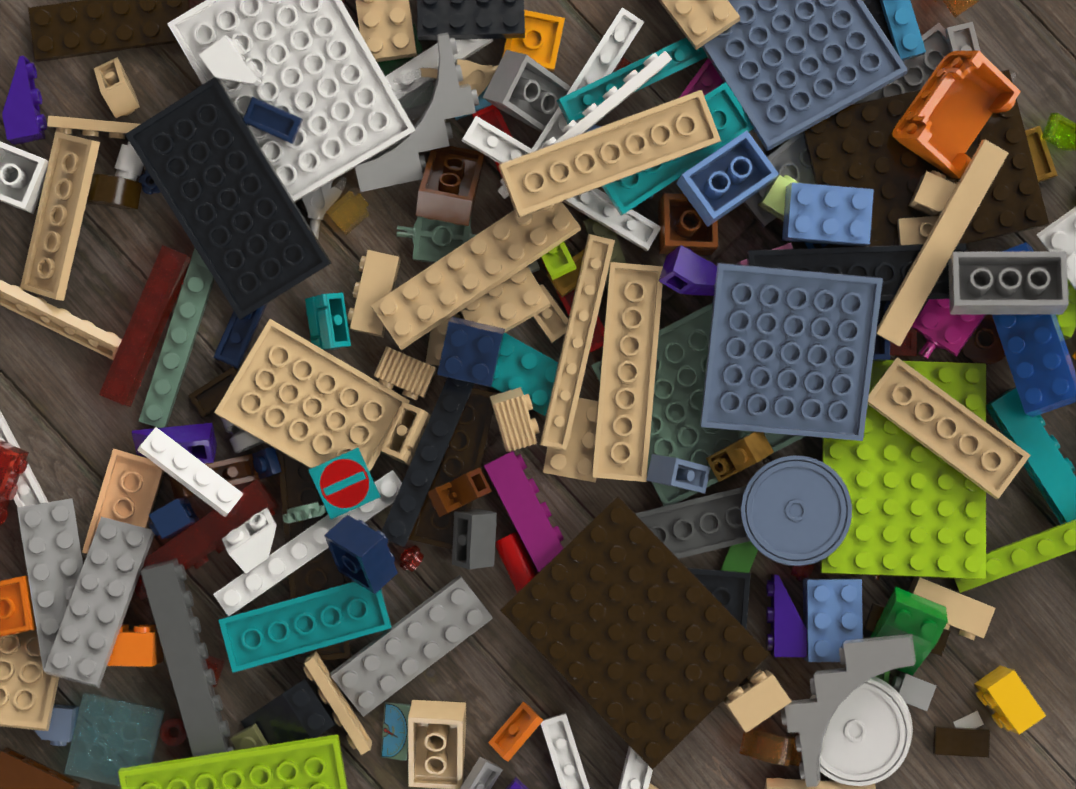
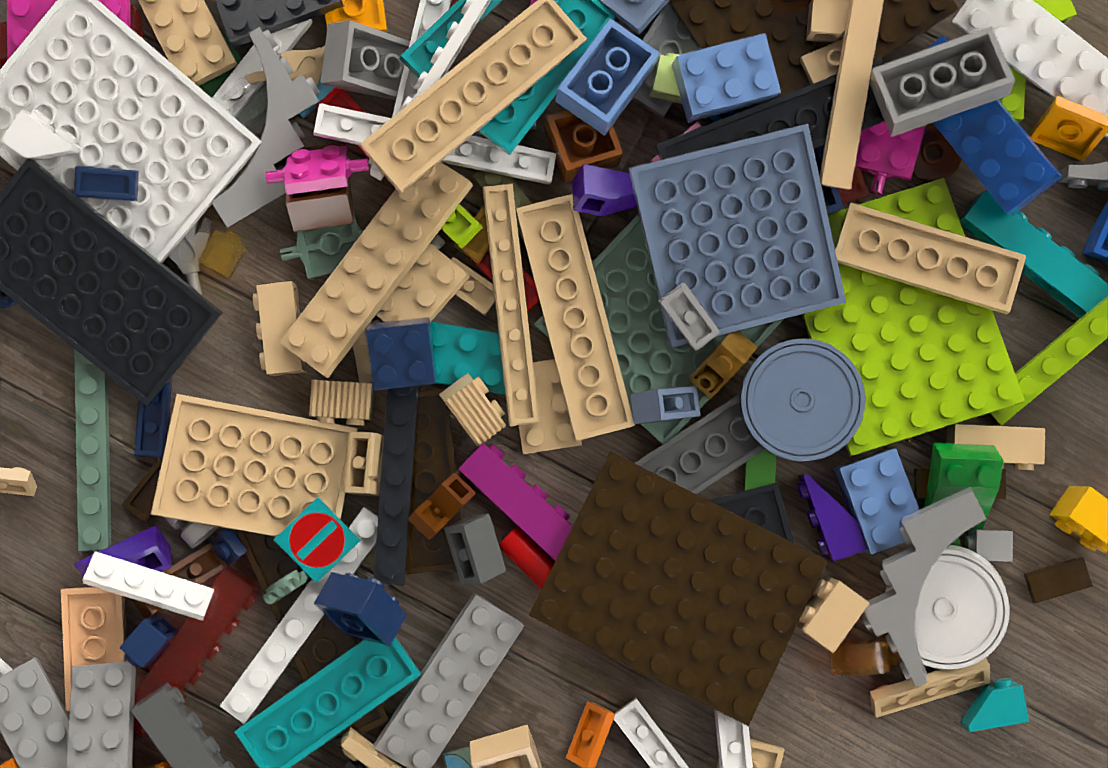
camera: 20 degrees left, 0 degrees up
(146, 326) = (50, 449): clear red brick -> none
(251, 541) = (240, 636): white slope -> none
(328, 321) = (241, 375): teal brick -> none
(411, 558) = (416, 593): clear red plate -> none
(454, 170) = (317, 170): none -> dark pink plate
(724, 406) = (689, 316): none -> light grey plate
(802, 571) = (830, 462): clear red plate -> none
(970, 721) = (1058, 555): white sticker -> none

